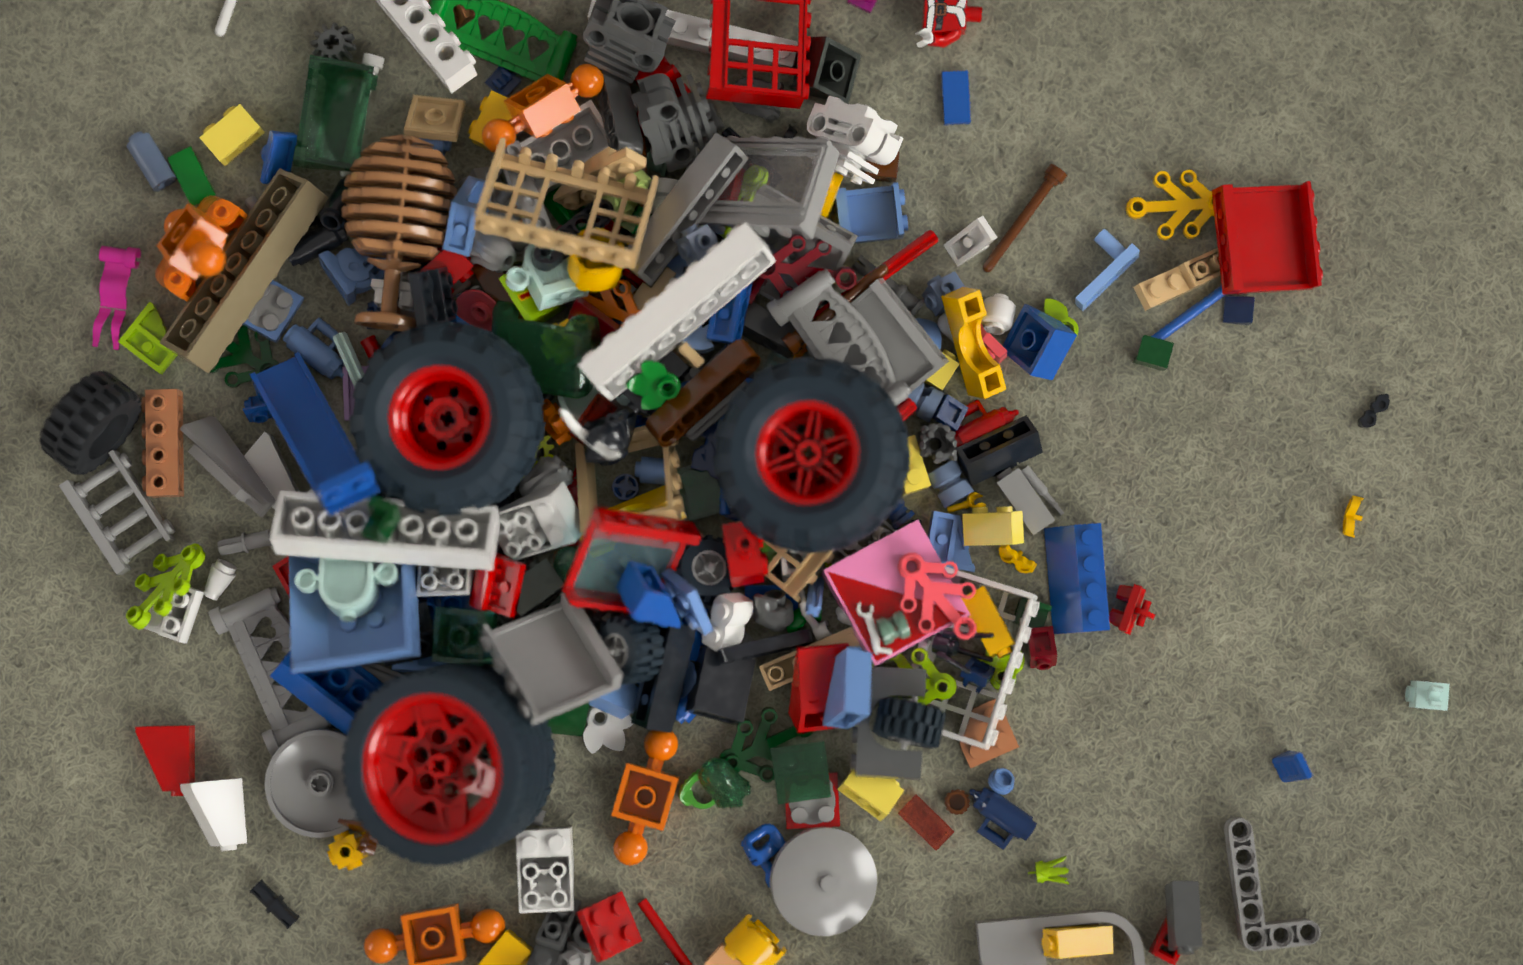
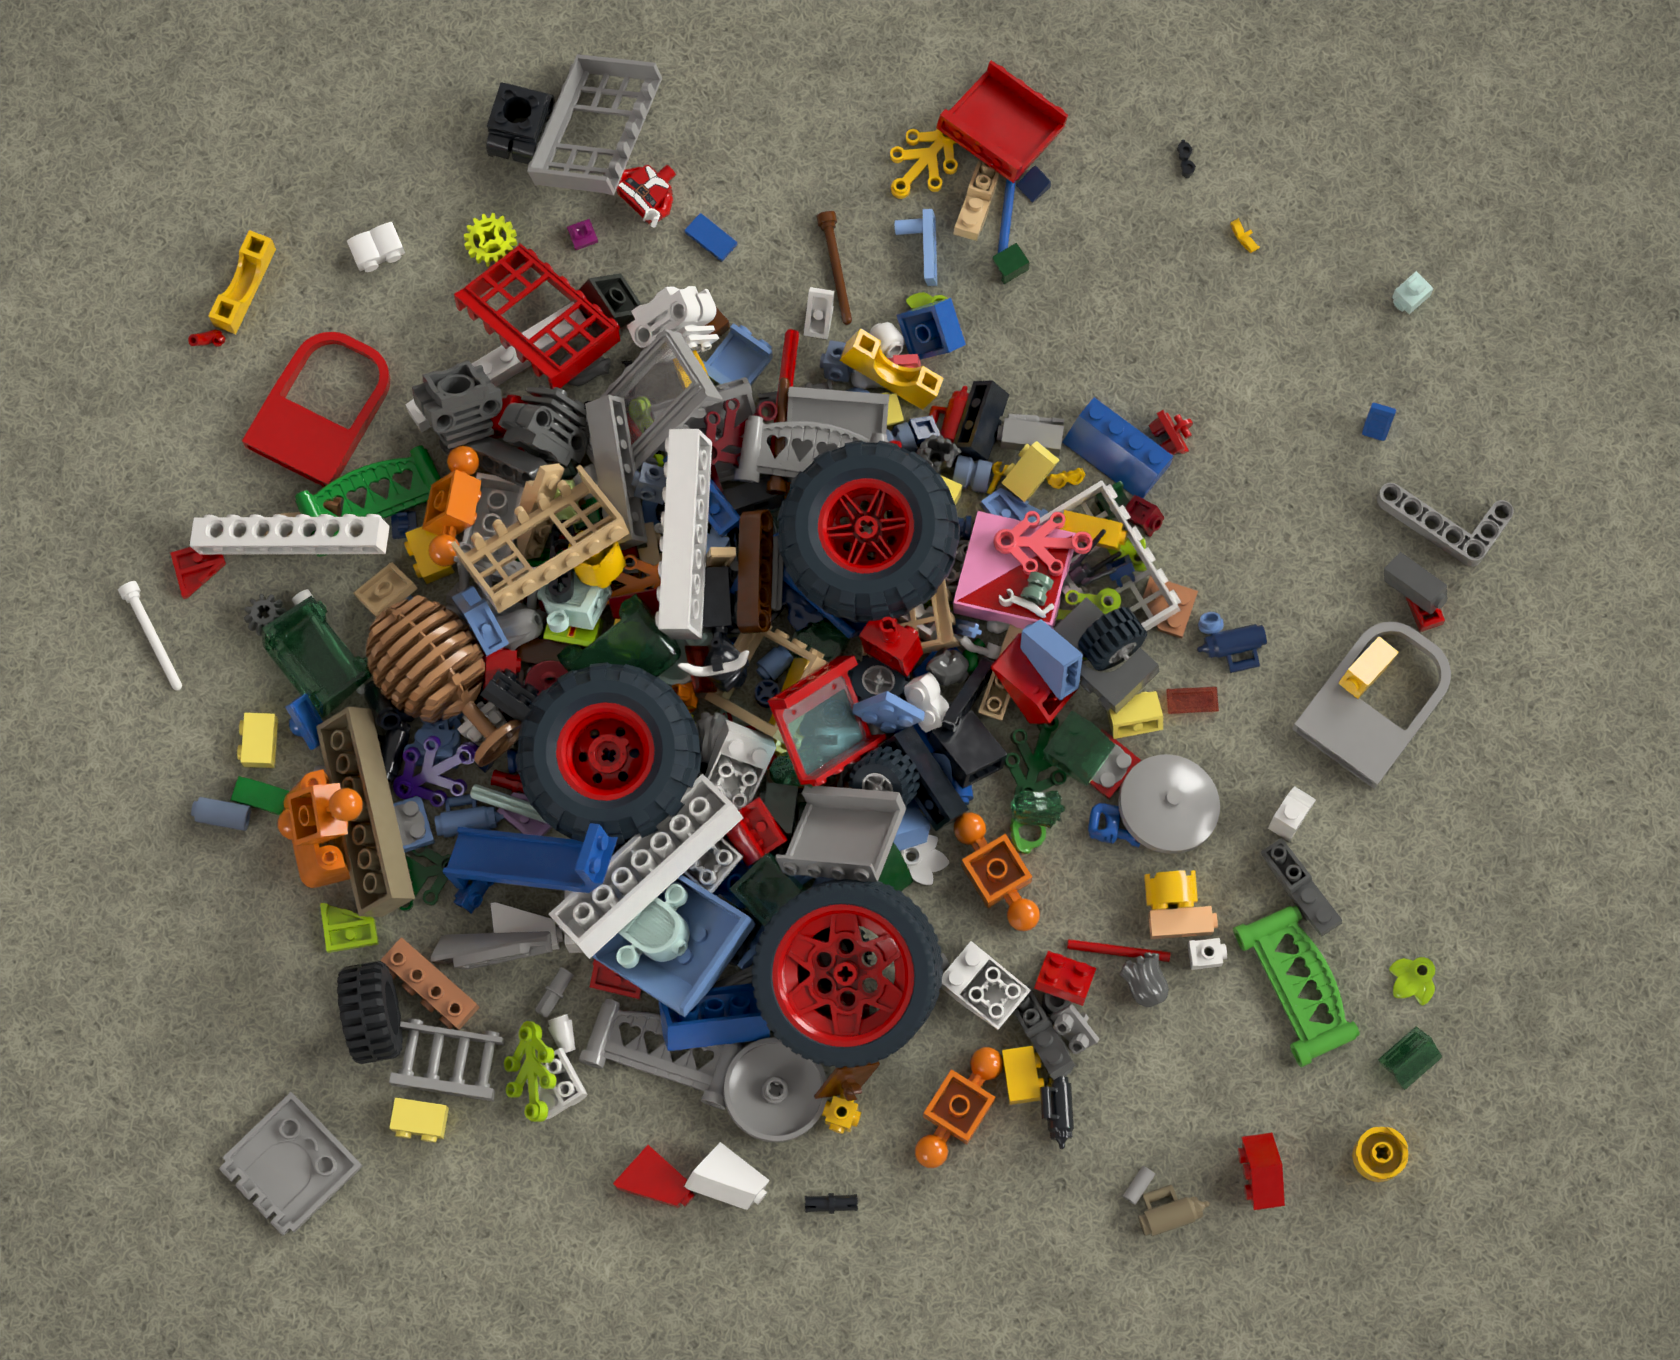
camera: 45 degrees left, 10 degrees down
(54, 532) = (418, 1119): none -> light yellow brick
(113, 288) = (286, 921): dark pink flag -> none
(301, 282) = (431, 773): none -> dark purple plant
(382, 520) = (637, 855): dark green panel -> none
(646, 595) = (860, 730): blue slope -> none
(650, 383) = (715, 598): green plate -> none
(957, 802) = (1197, 665): reddish brown piece -> none
(1046, 871) = (1299, 649): lime piece -> none

